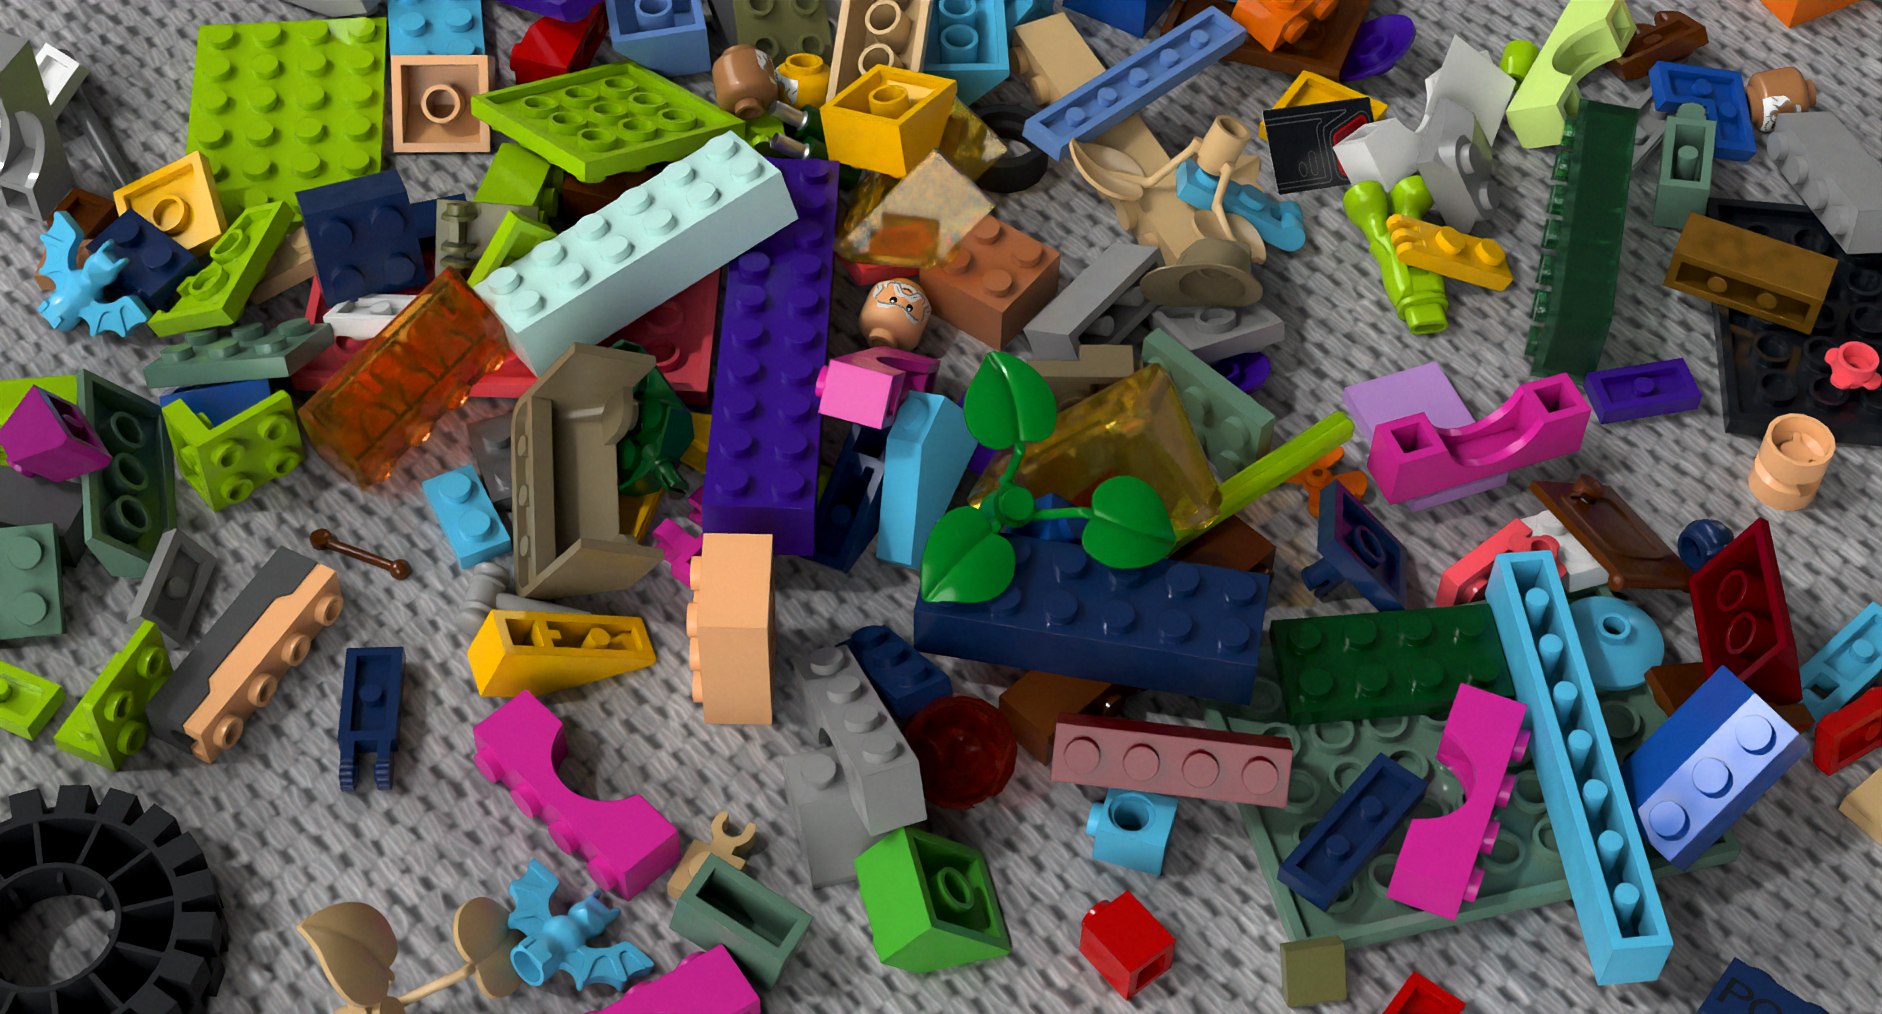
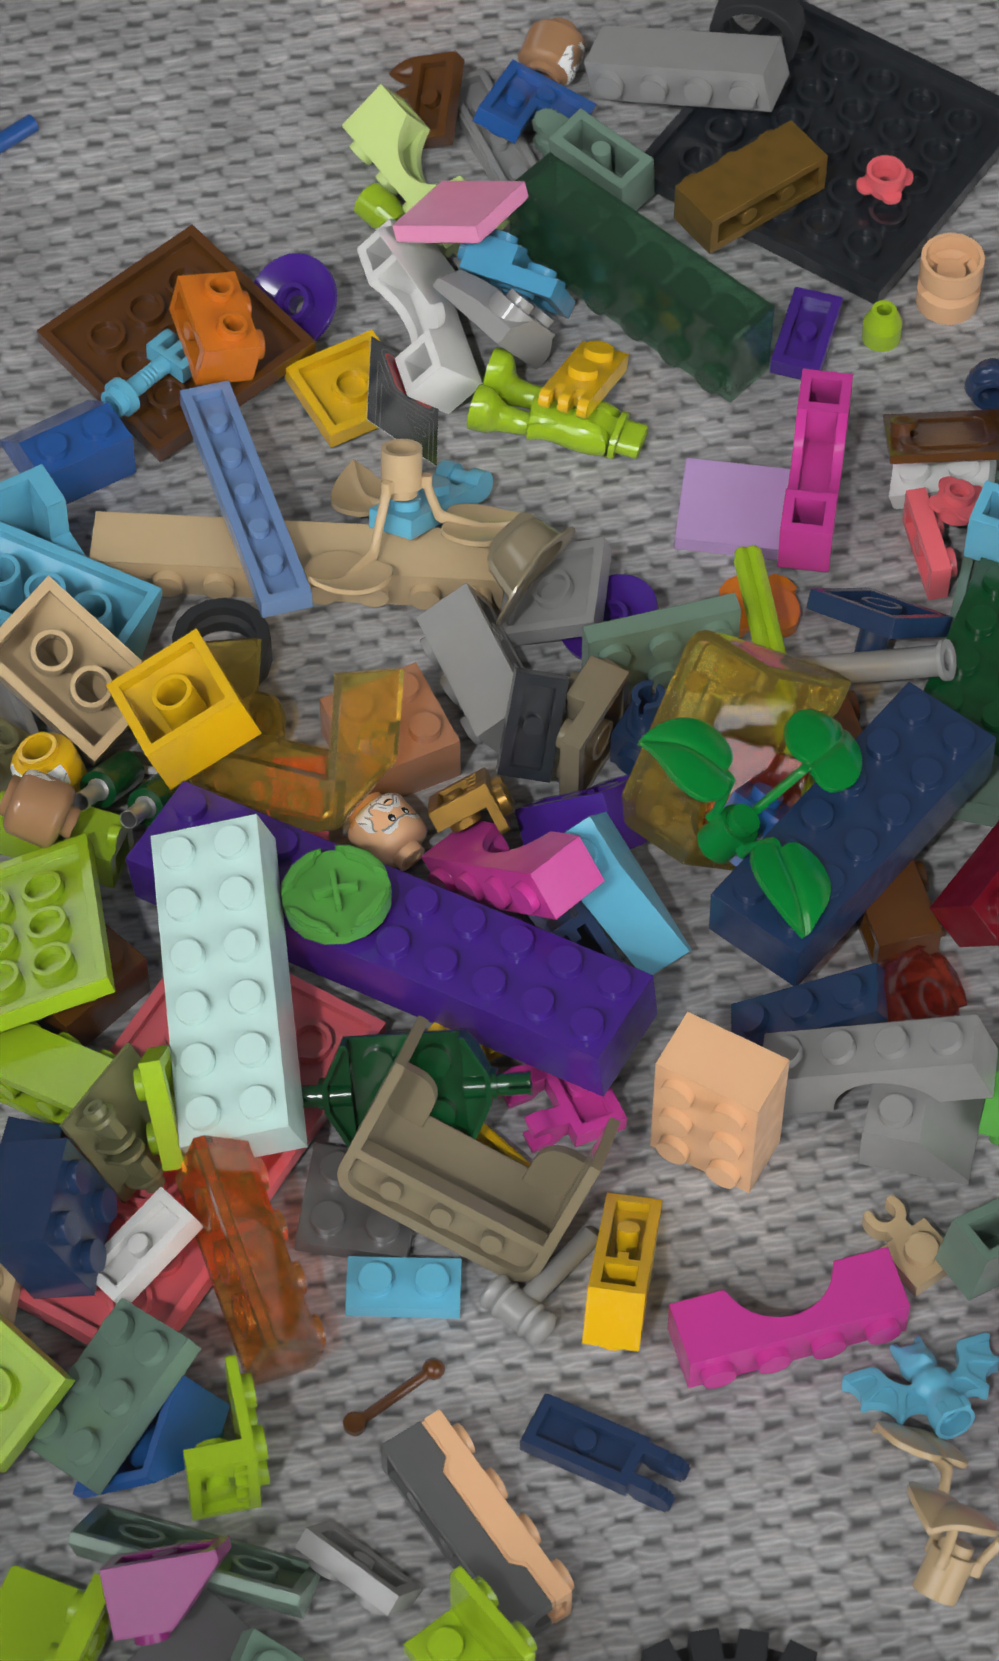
camera: 60 degrees left, 5 degrees up
(767, 277) = (336, 895): none -> bright green tile
(949, 354) = (460, 803): none -> pearl gold bracket
(1055, 333) = (532, 724): none -> black plate
(1331, 605) = (892, 663): none -> light grey pin
(1513, 156) = (507, 266): none -> dark azure plate
(1522, 79) = (460, 211): none -> bright pink tile
(1700, 442) = (882, 327): none -> lime hose

